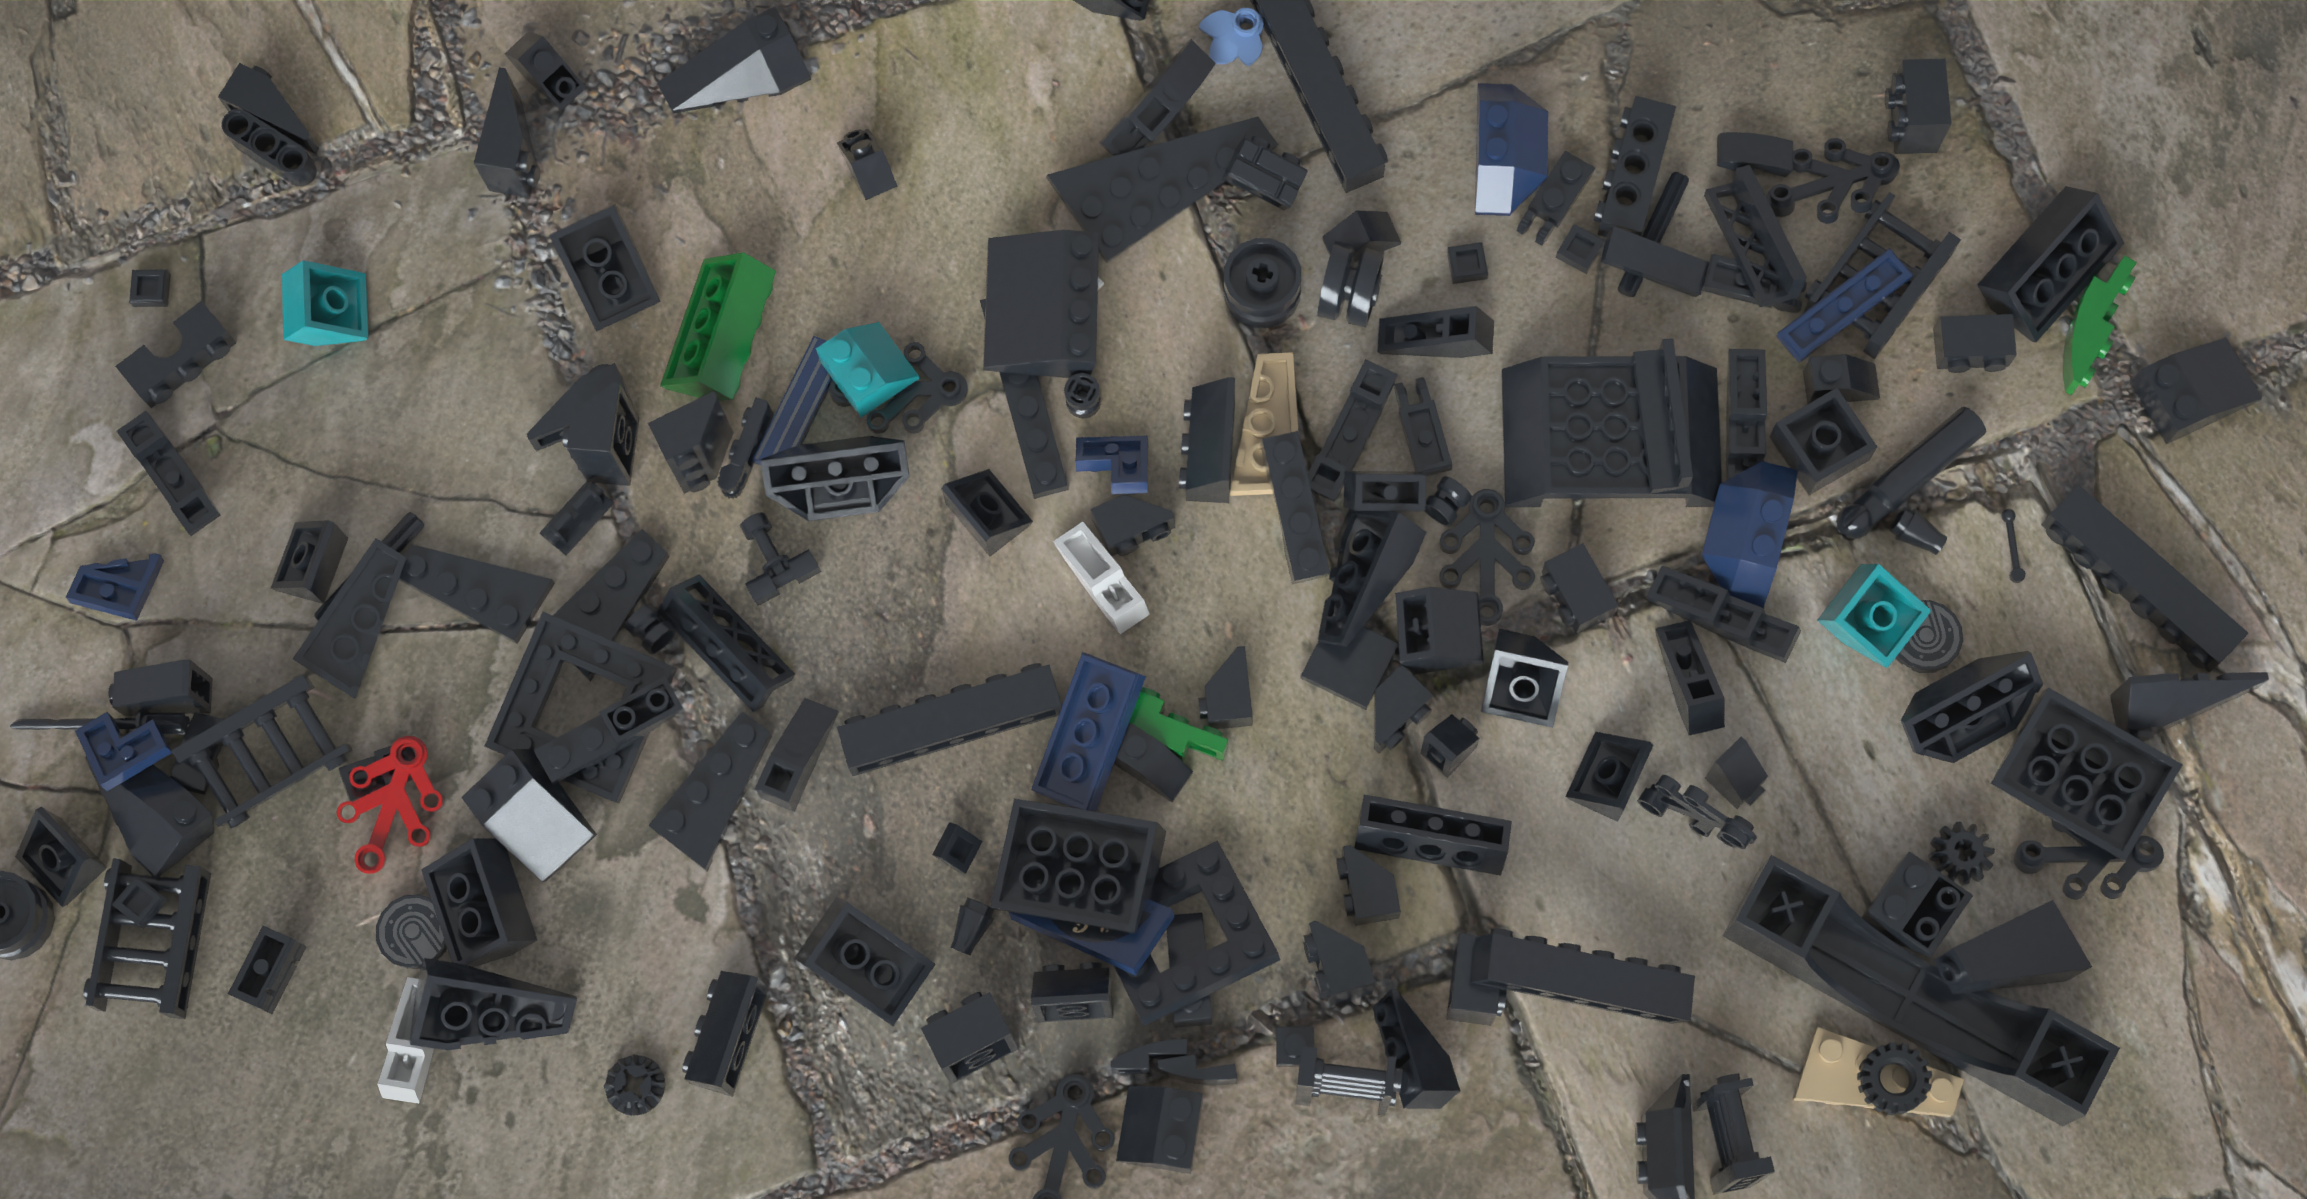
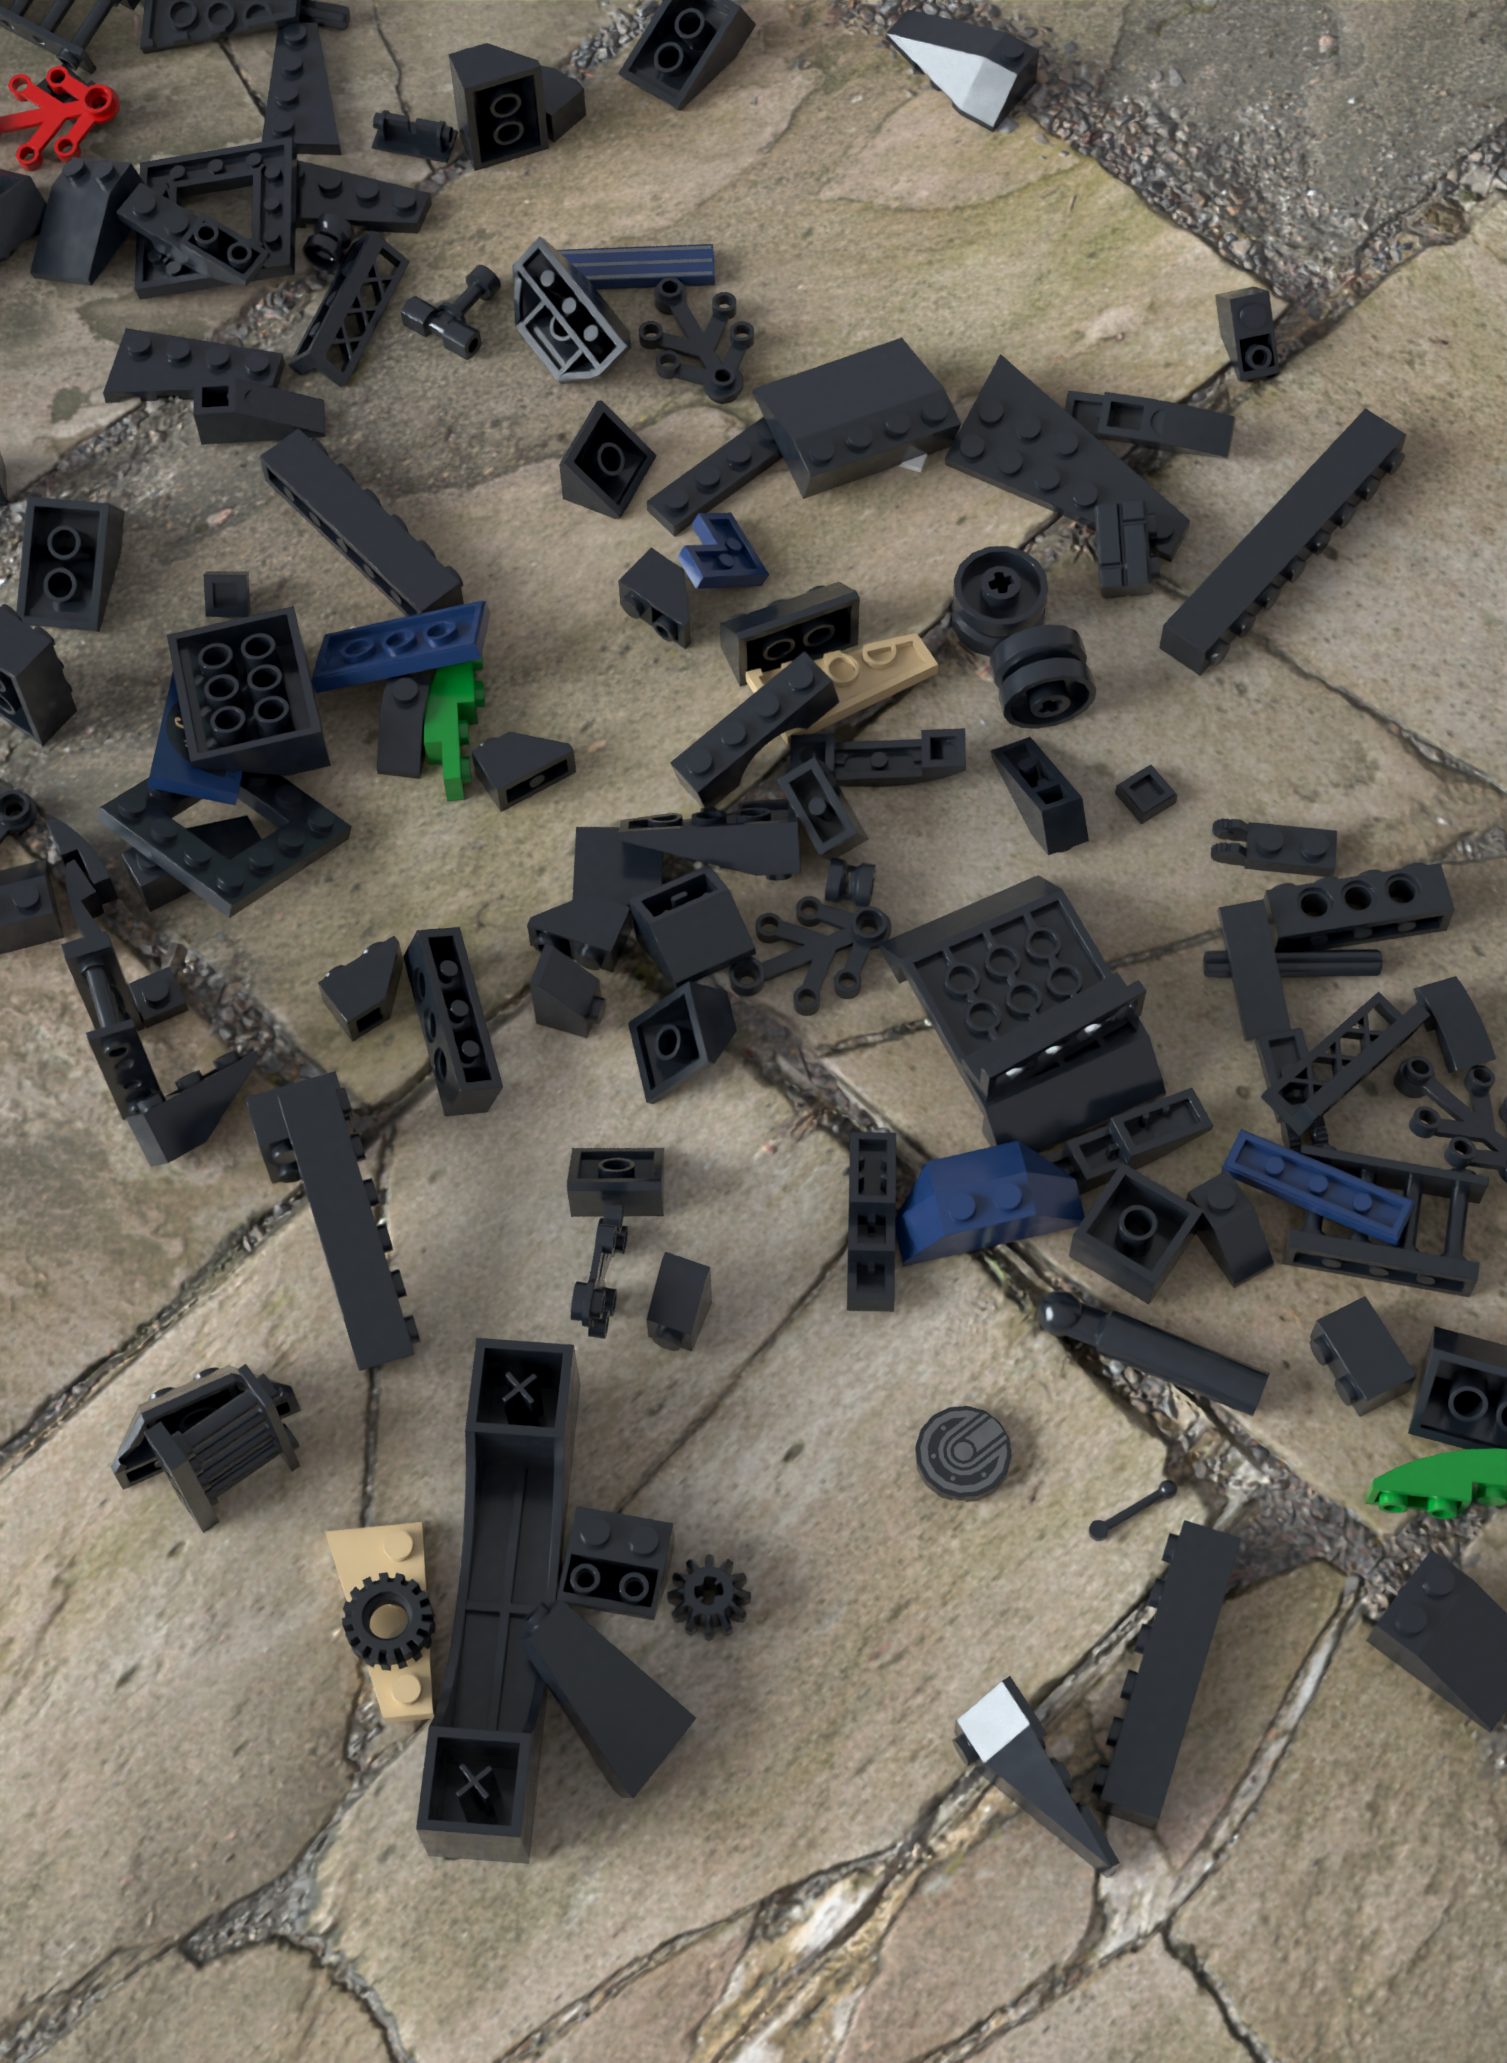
camera: 60 degrees right, 10 degrees down
(694, 441) = (530, 176): black slope -> none
(719, 326) = (676, 164): green slope -> none
(755, 423) = (564, 234): black hinge -> none
(866, 366) = (696, 288): teal slope -> none
(867, 163) = (923, 205): black slope -> none
(971, 925) = (147, 642): black cone -> none
(1072, 993) = (105, 740): black slope -> none
(1084, 403) = (779, 496): black wheel -> none
(1102, 577) = (585, 601): white slope -> none
(1230, 39) = (1269, 466): medium blue plate -> none
(1341, 965) = (256, 985): black slope -> none
(1364, 231) = (1121, 680): black slope -> none
(1423, 430) = (921, 827): black hinge -> none
(1508, 148) = (1302, 770): dark blue wedge -> none
(1578, 589) = (818, 1055): black brick -> none
(1580, 249) = (1225, 889): black plate -> none
(1691, 678) = (772, 1214): black slope -> none
(1874, 614) = (952, 1378): teal slope -> none
(1916, 530) = (1087, 1389): black cone -> none
(1971, 706) = (890, 1529): black wedge -> none
(2085, 773) = (877, 1696): black slope -> none
(2097, 861) = (785, 1756): black plant -> none

